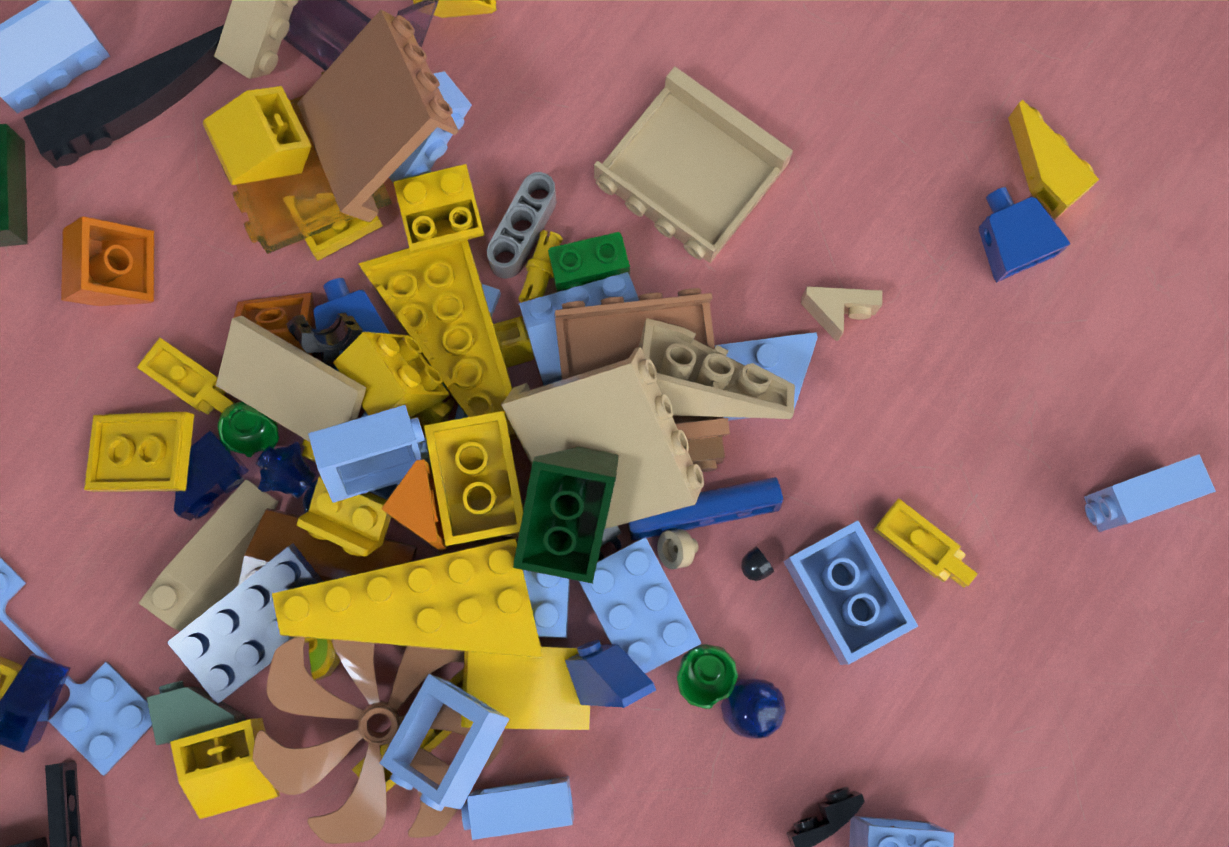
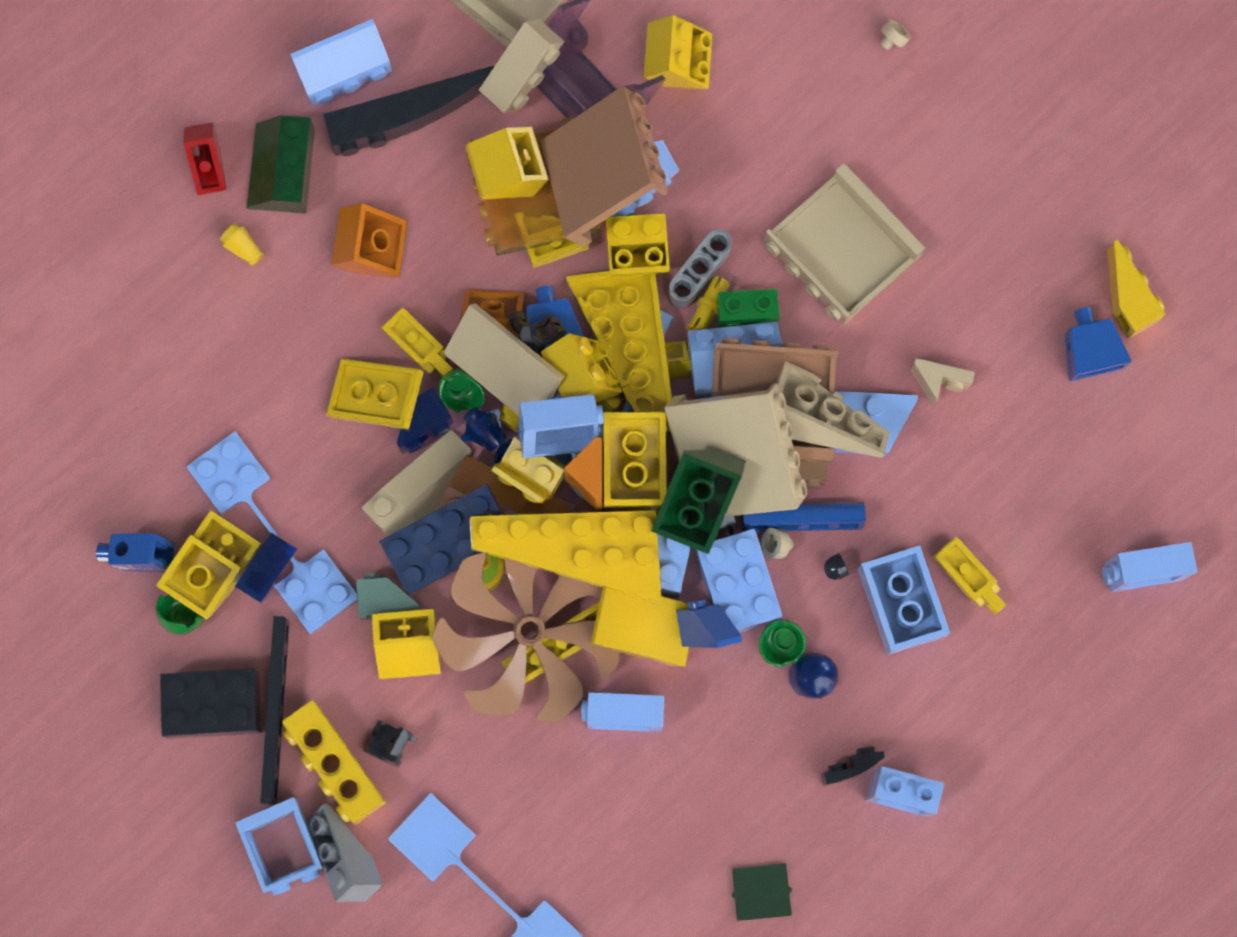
camera: 10 degrees right, 0 degrees up
(470, 757) = (596, 663): light blue window -> none

